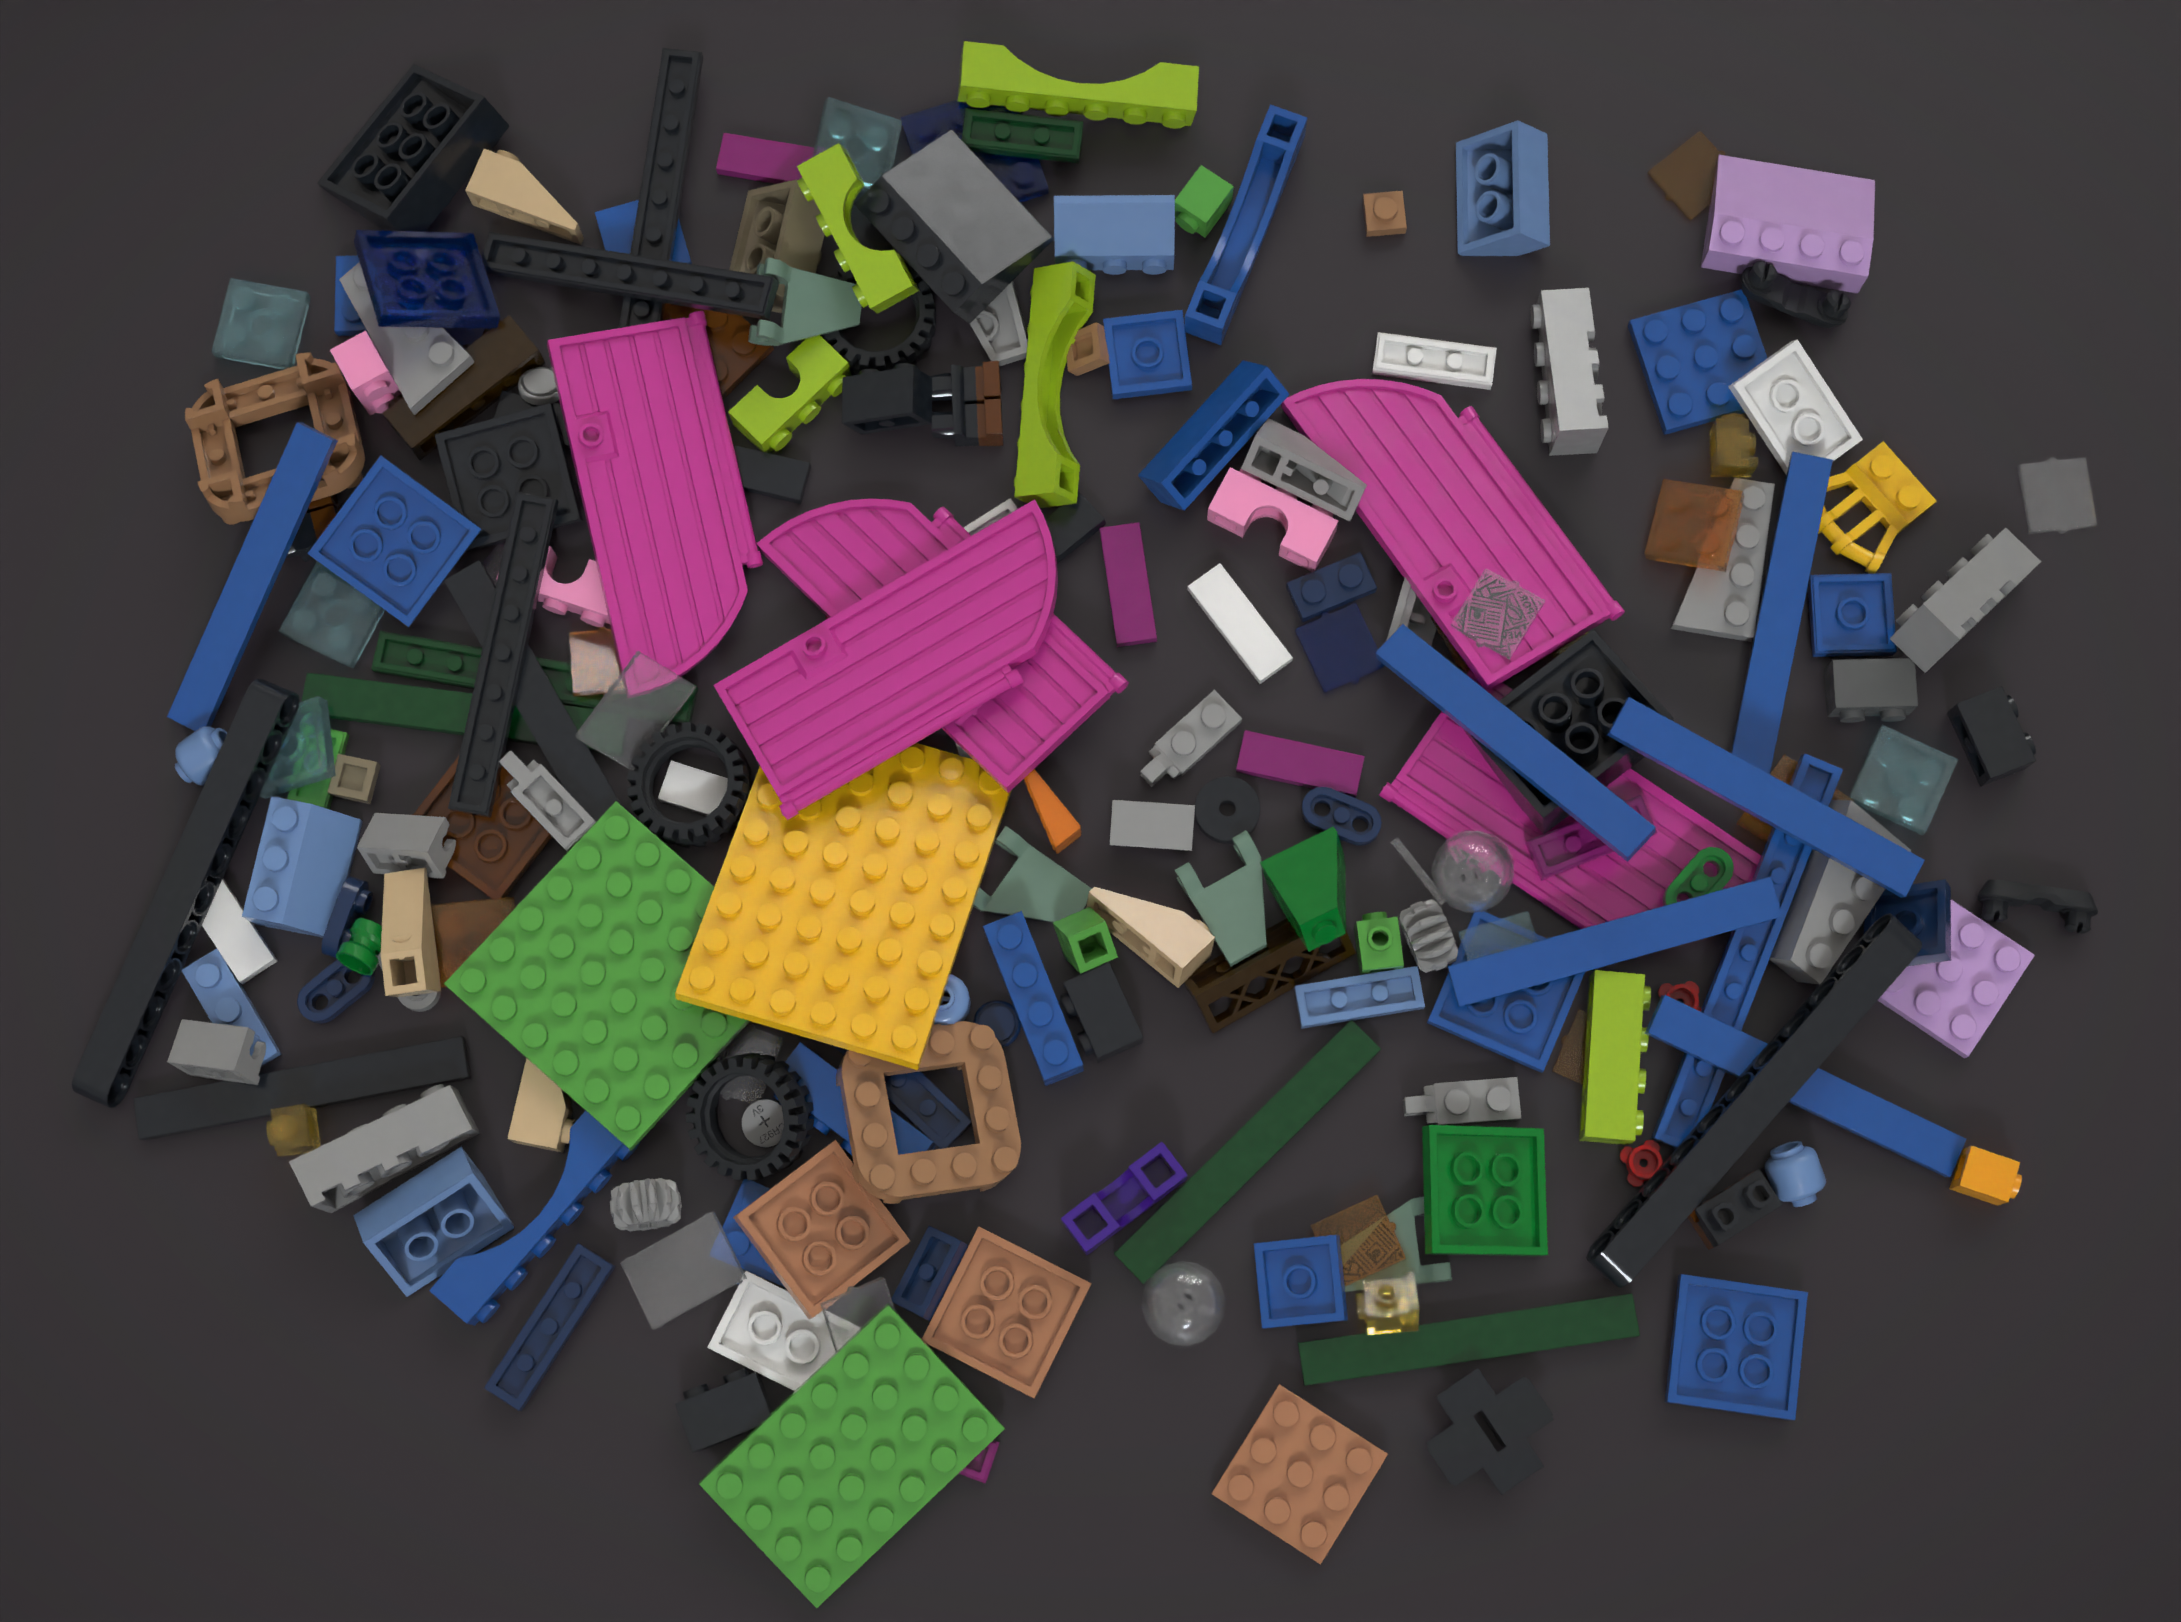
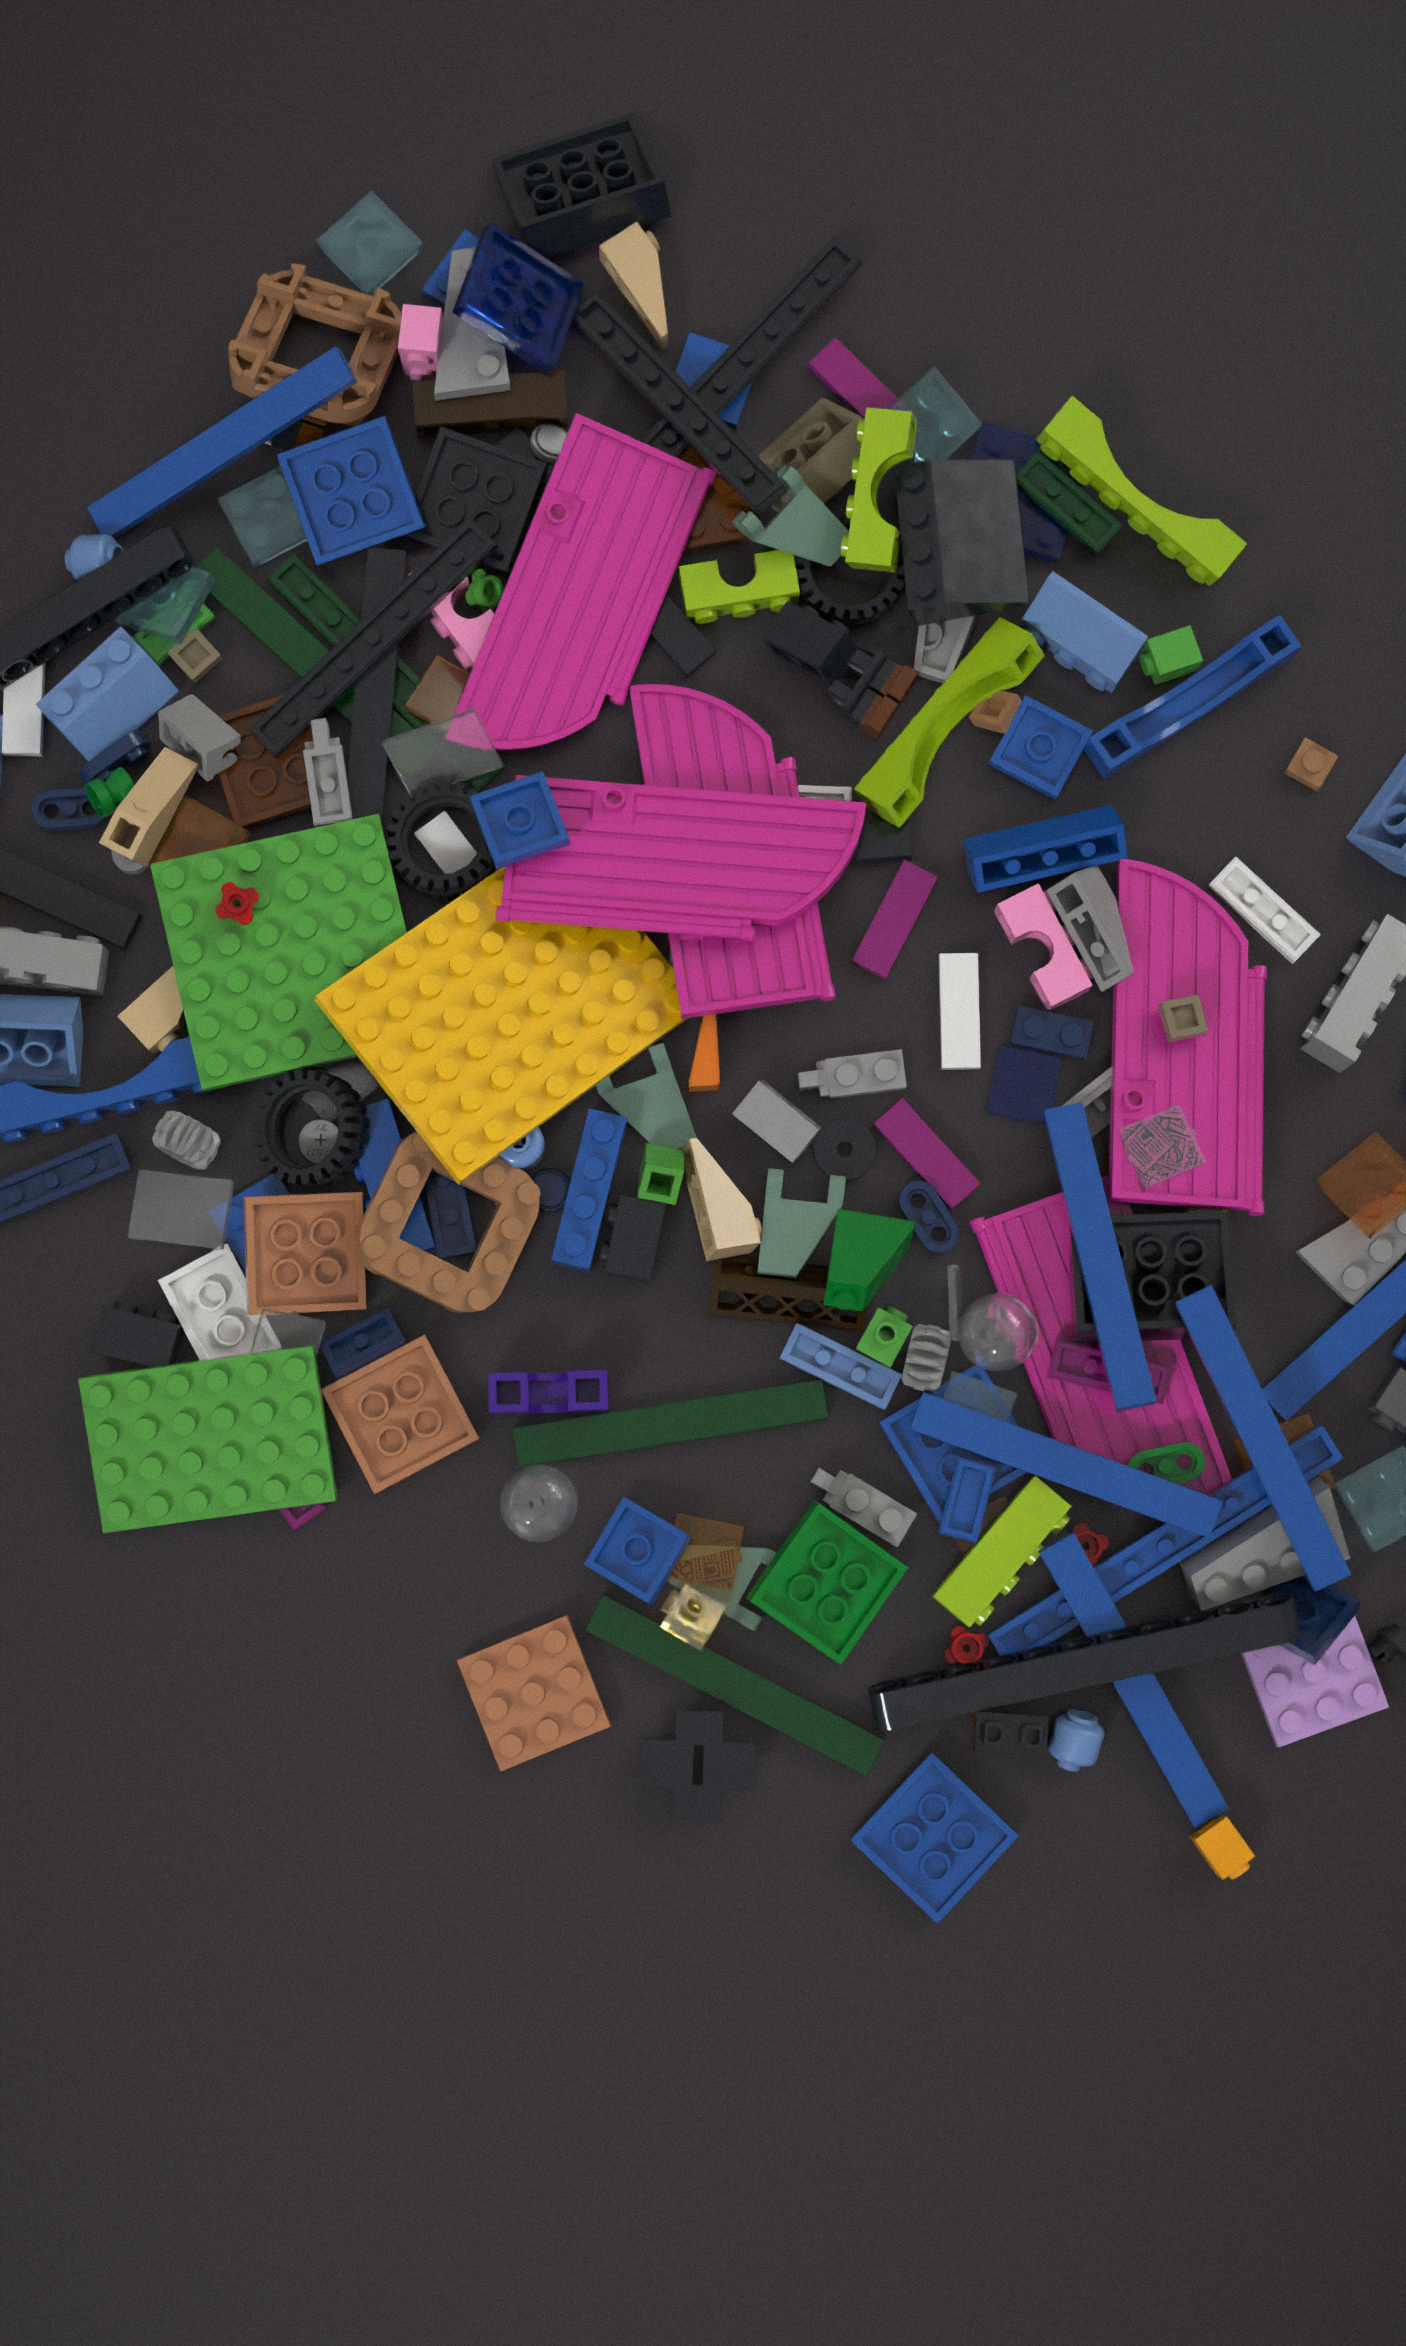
camera: 30 degrees right, 5 degrees up
(558, 966) = (240, 914): none -> red plate
(572, 549) = (484, 590): none -> bright green plate
(746, 719) = (519, 820): none -> blue plate
(1436, 494) = (1183, 1018): none -> dark tan plate
(1551, 1033) = (966, 1499): none -> blue tile

